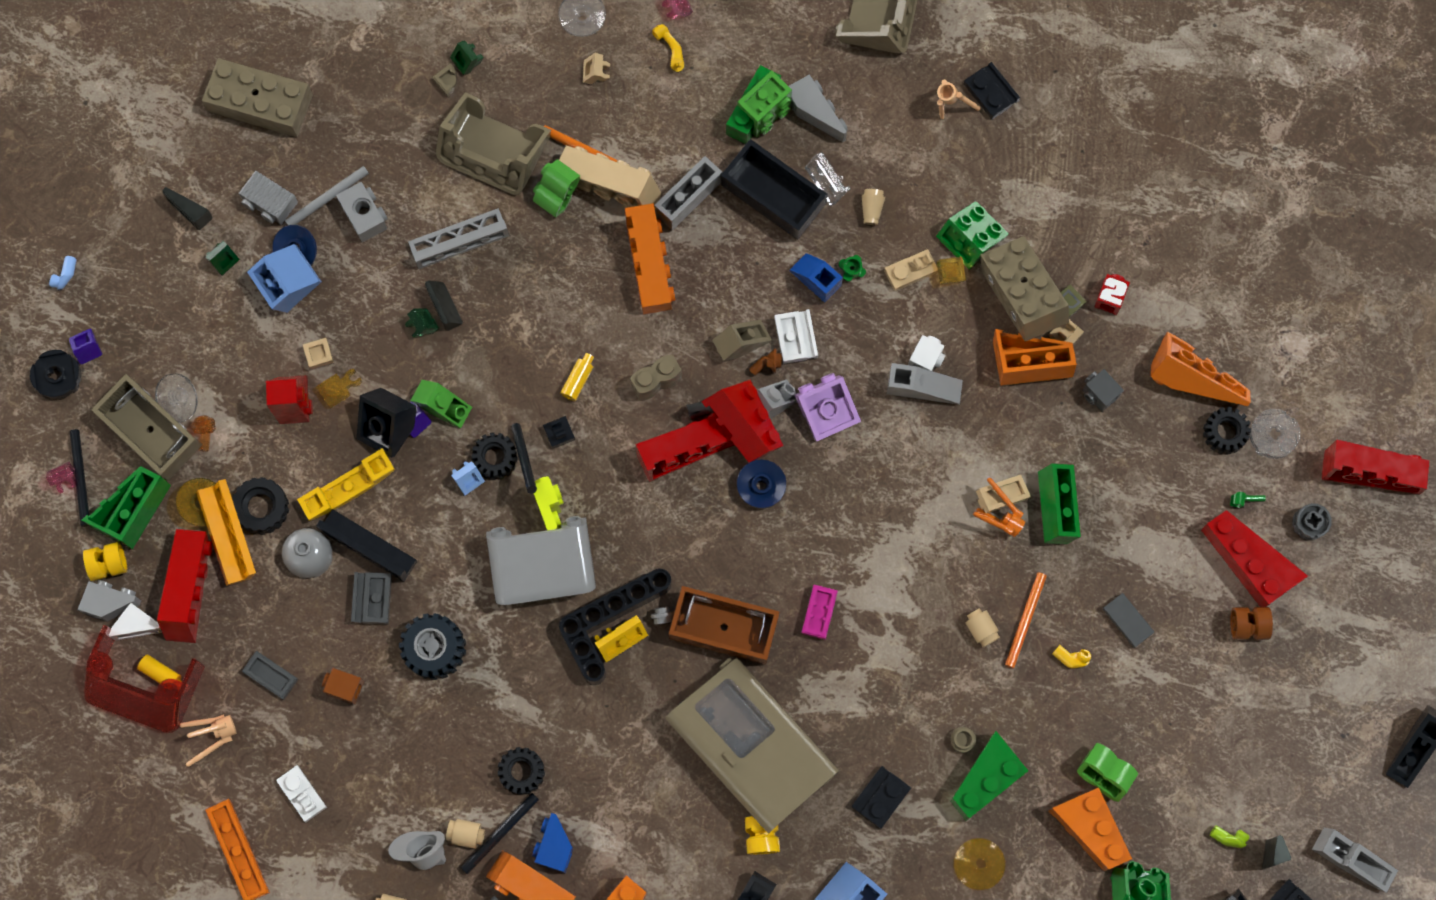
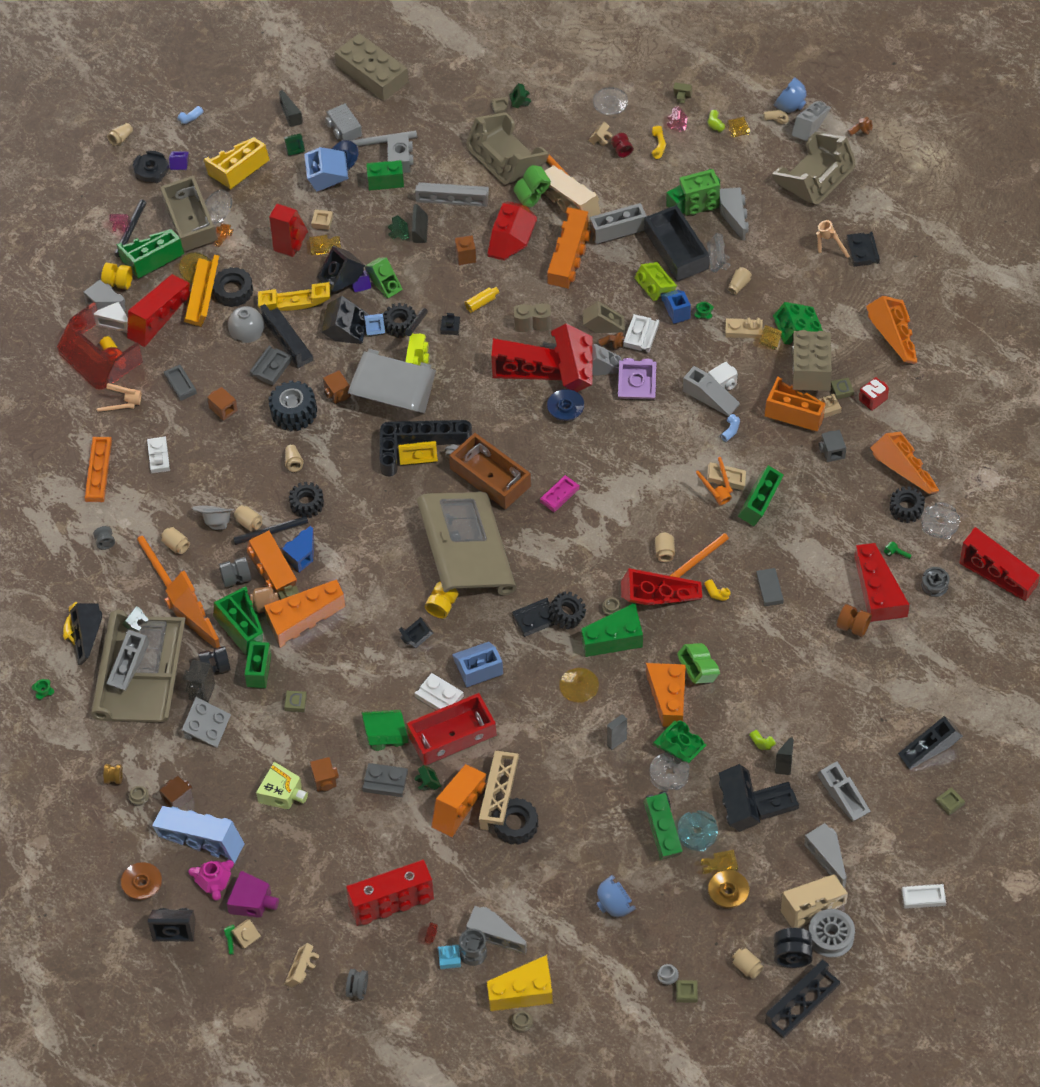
camera: 30 degrees right, 20 degrees down
(167, 321) = (237, 163): none -> yellow wedge
(362, 252) = (385, 175): none -> green brick
(429, 492) = (344, 321): none -> black slope
(471, 592) = (336, 387): none -> dark orange brick
(473, 720) = (293, 459): none -> tan cone
(522, 317) = (465, 250): none -> dark orange brick
(562, 259) = (511, 230): none -> red wedge
(630, 73) = (623, 146): none -> dark red wheel
(772, 252) = (654, 280): none -> lime bracket
(929, 769) = (573, 604): none -> black tyre
(972, 424) = (733, 428): none -> light blue arm
(1007, 696) = (656, 588): none -> red wedge
(1077, 182) = (891, 320): none -> orange wedge

